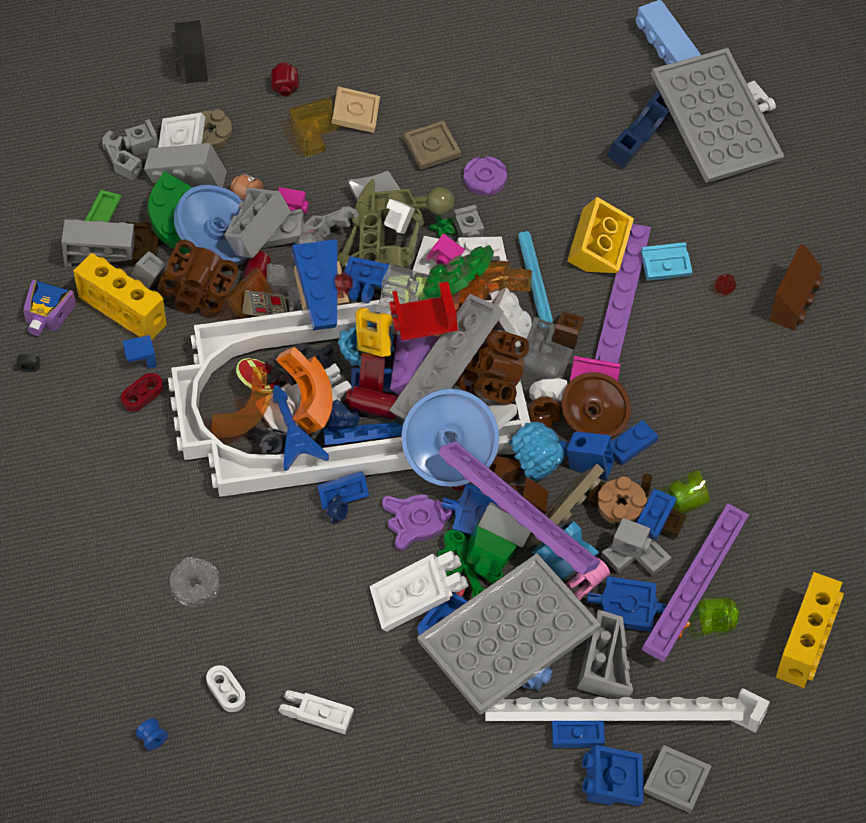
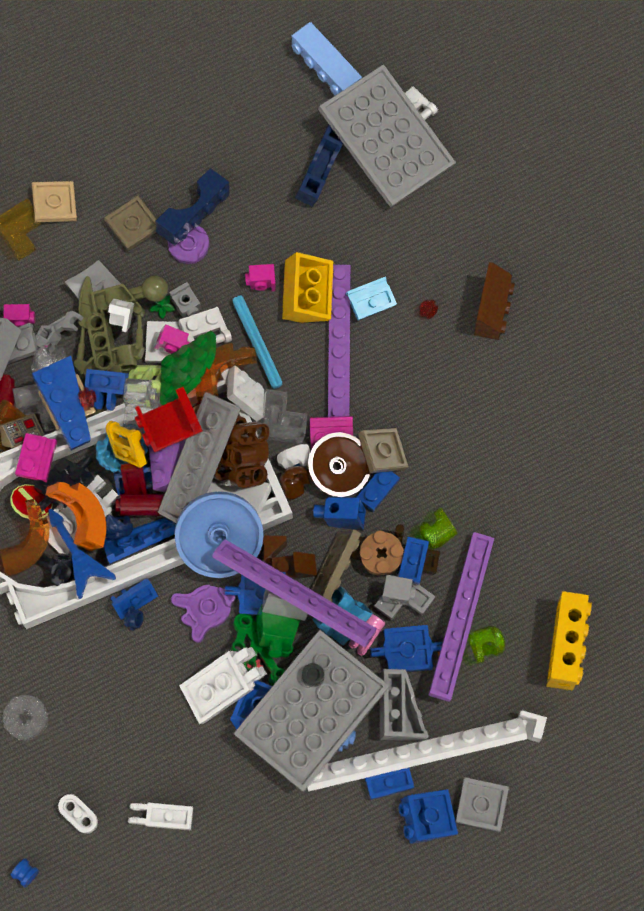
camera: 10 degrees left, 15 degrees up
(274, 329) = (36, 457): none -> dark pink plate
(477, 150) = (176, 223): none -> dark blue arch
(519, 595) = (313, 674): none -> pearl dark grey tile
(537, 450) = (296, 522): dark azure hair -> none
(554, 218) = (261, 277): none -> dark pink brick
(568, 330) = (298, 387): reddish brown slope -> none
(646, 404) = (383, 450): none -> dark tan plate

